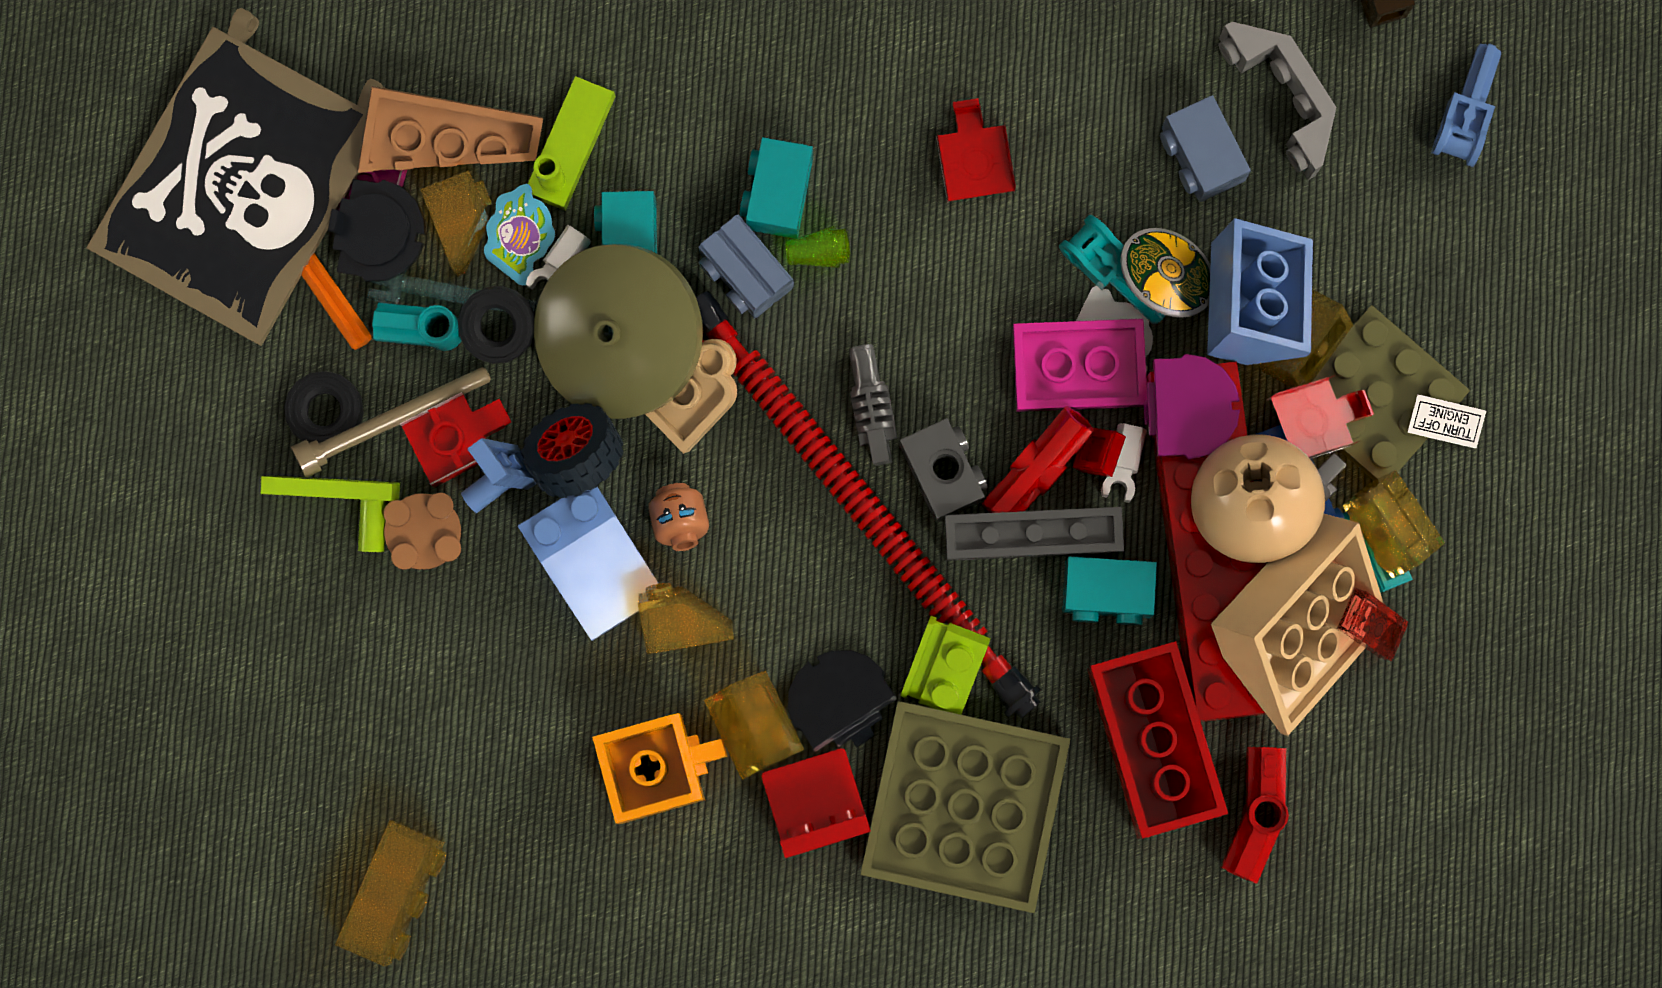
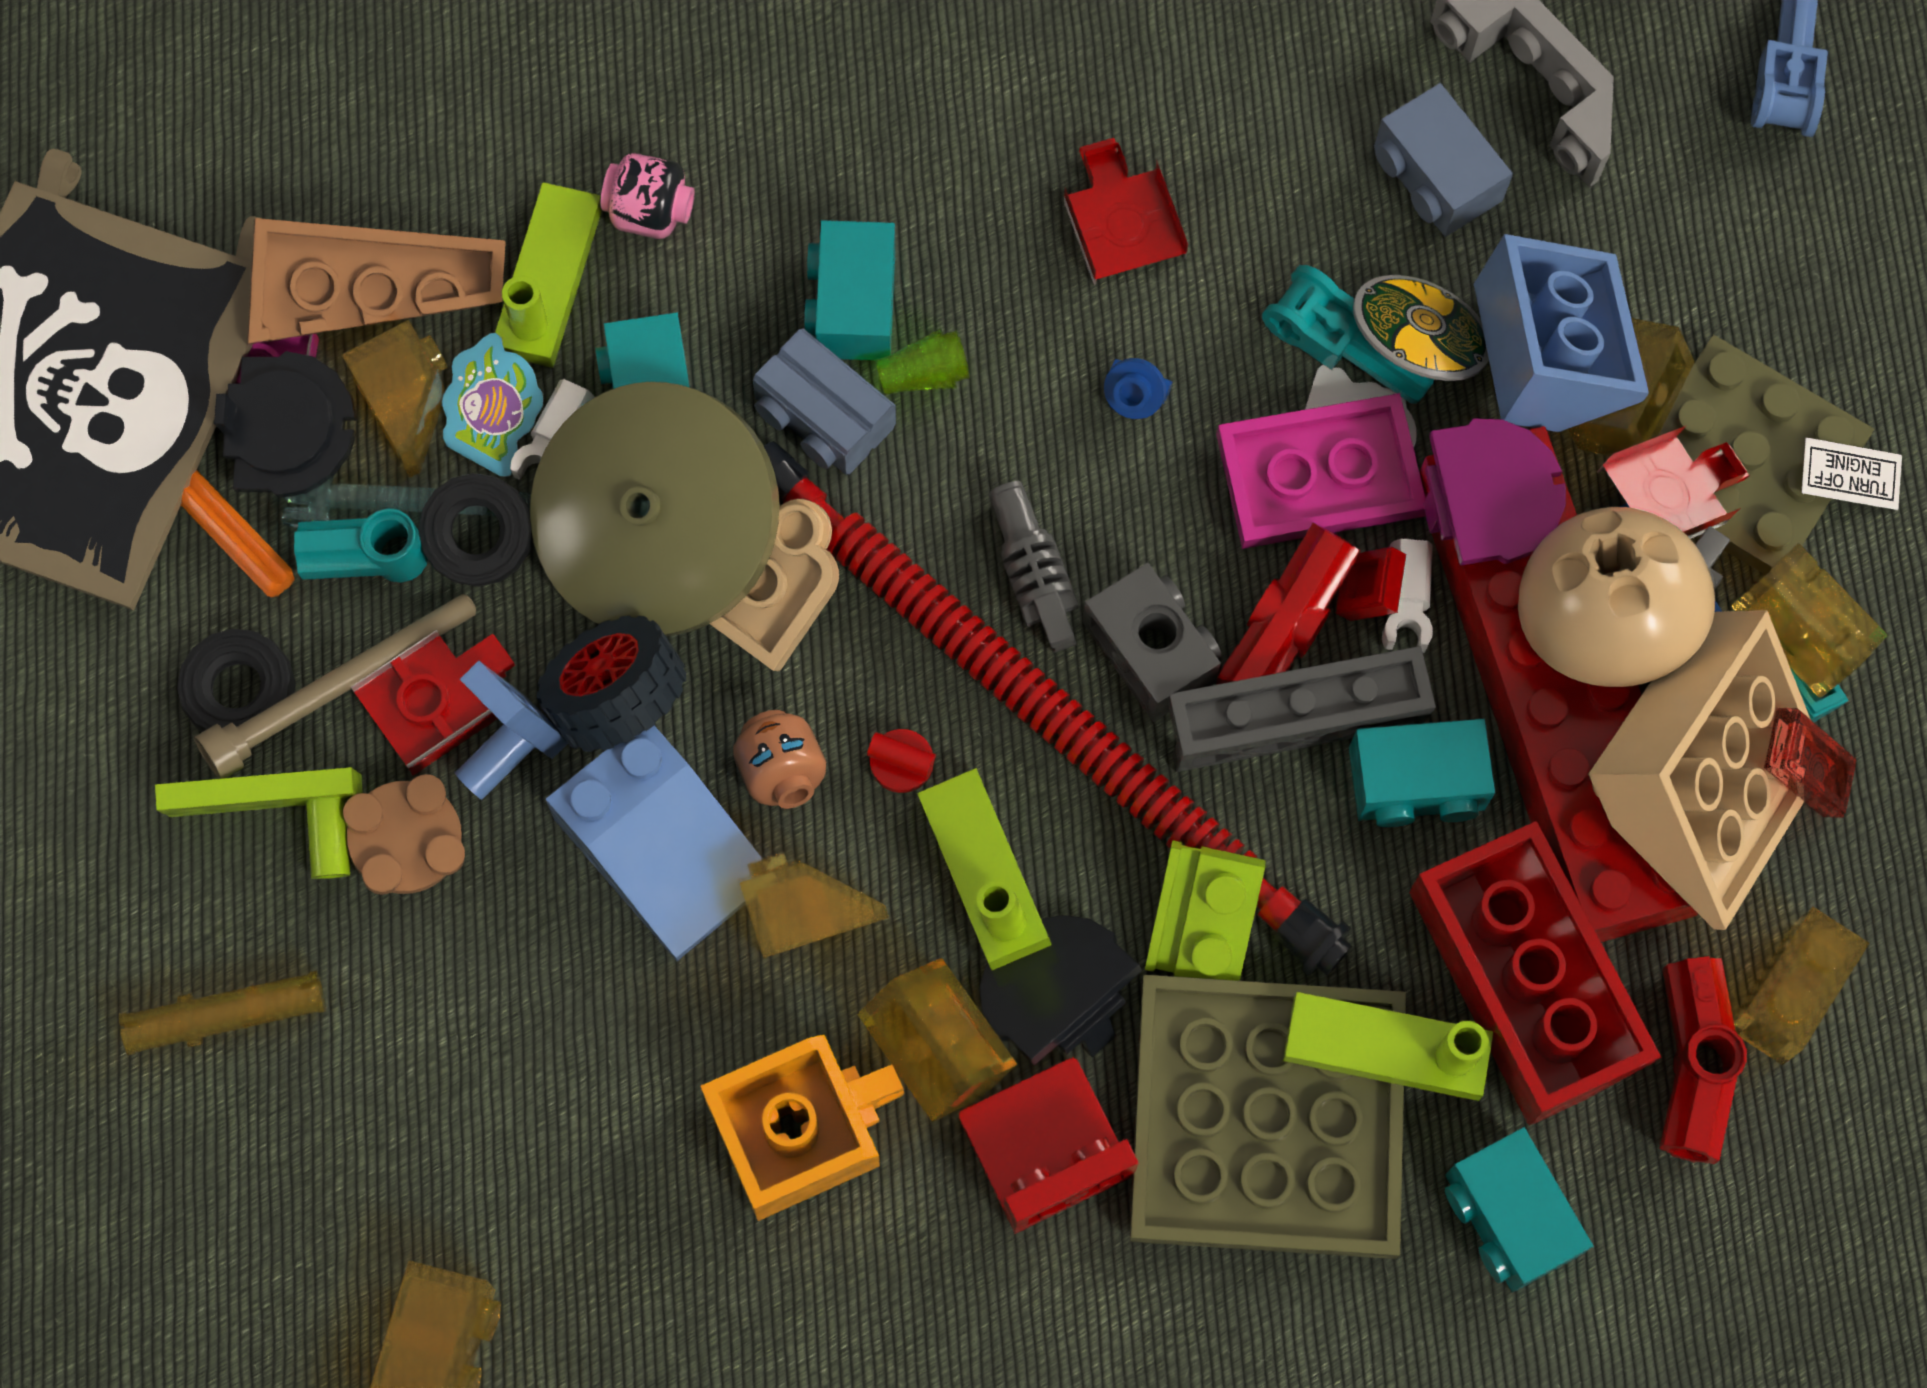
camera: 15 degrees left, 10 degrees down
(290, 633) = (220, 1013): none -> clear yellow pin
(645, 96) = (646, 195): none -> head
(760, 527) = (900, 760): none -> red plate
(804, 611) = (984, 869): none -> lime piece
(962, 286) = (1136, 388): none -> blue plate
(1051, 775) = (1388, 1046): none -> lime piece
(1117, 896) = (1516, 1211): none -> teal brick
(1334, 774) = (1798, 985): none -> clear yellow brick

